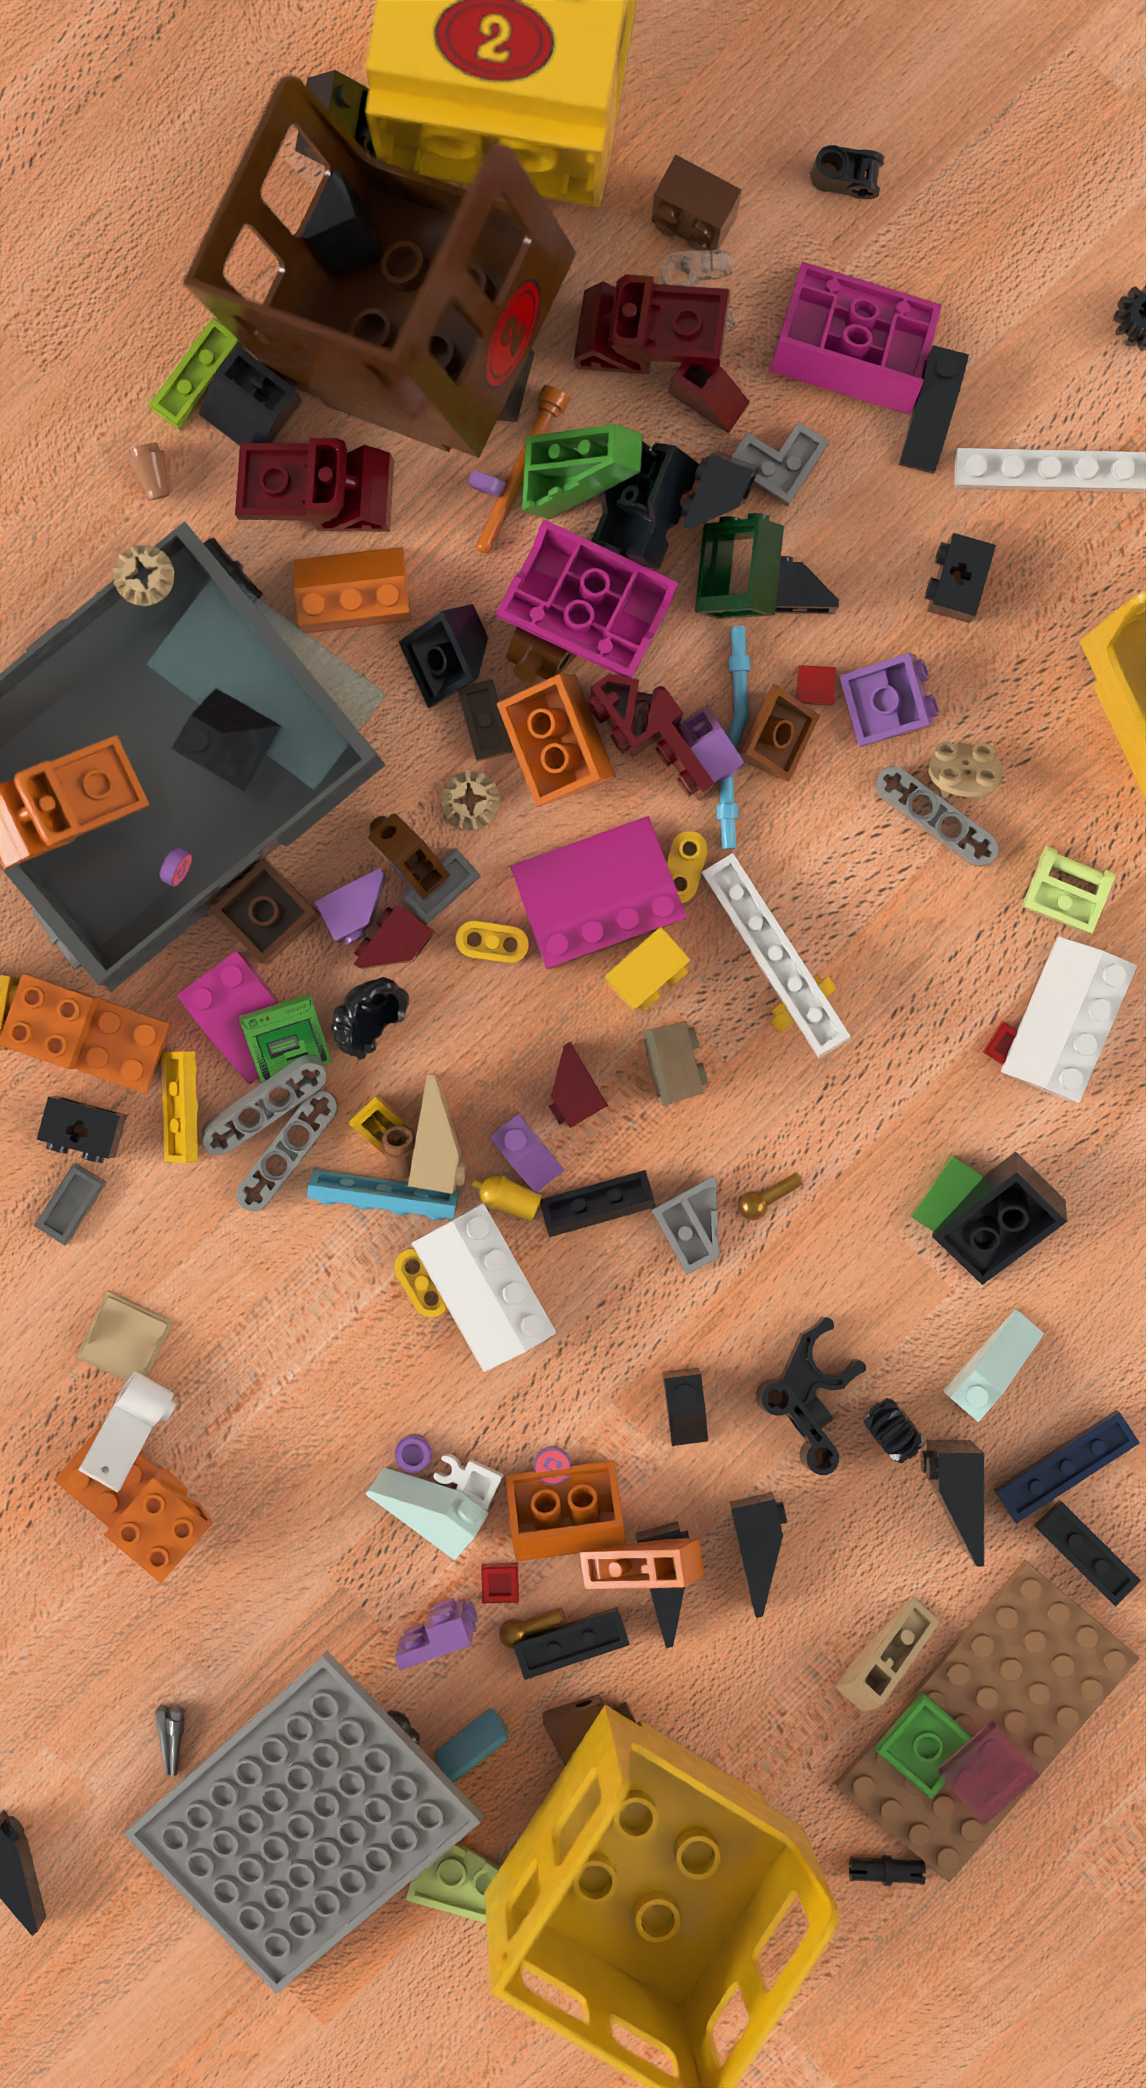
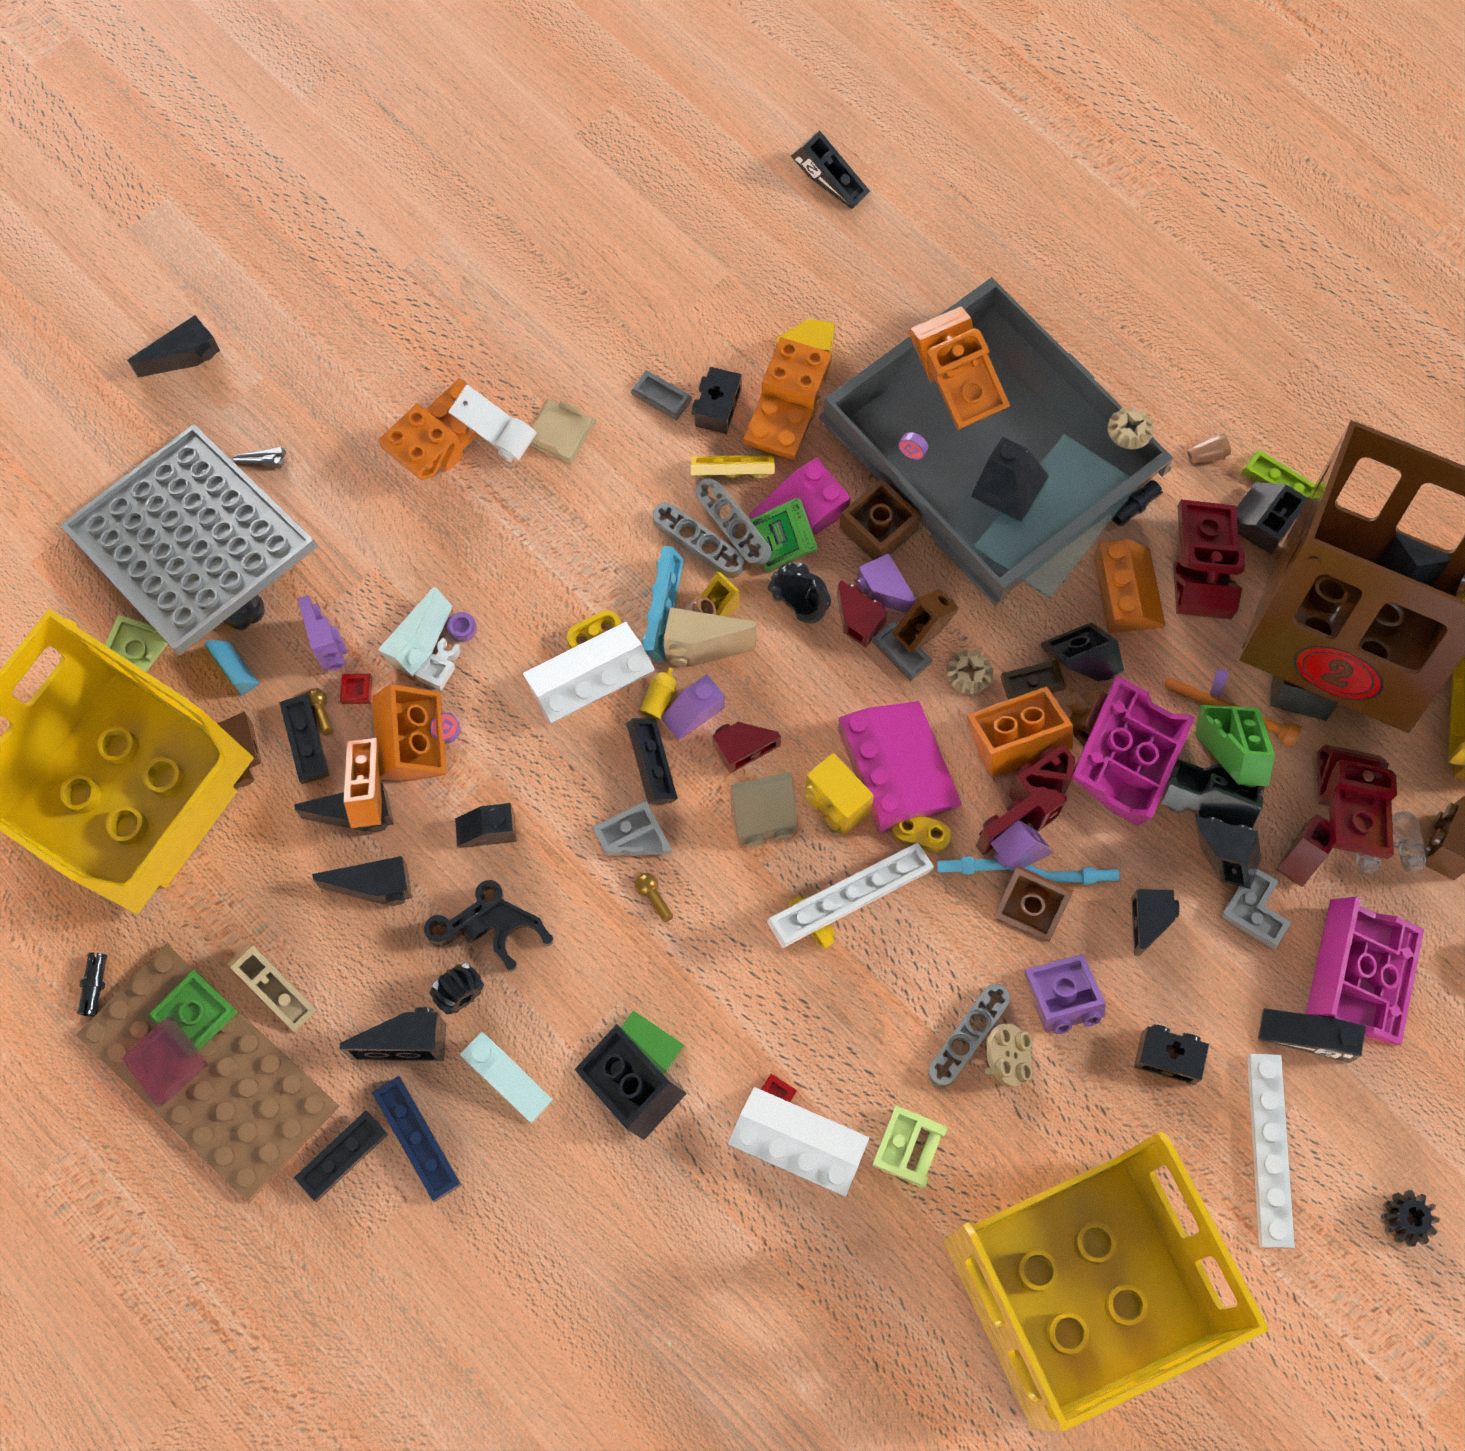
camera: 90 degrees right, 20 degrees down
(492, 942) = (858, 687): yellow plate -> none
(716, 565) = (1167, 869): dark green window -> none
(816, 685) = (1074, 937): red tile -> none

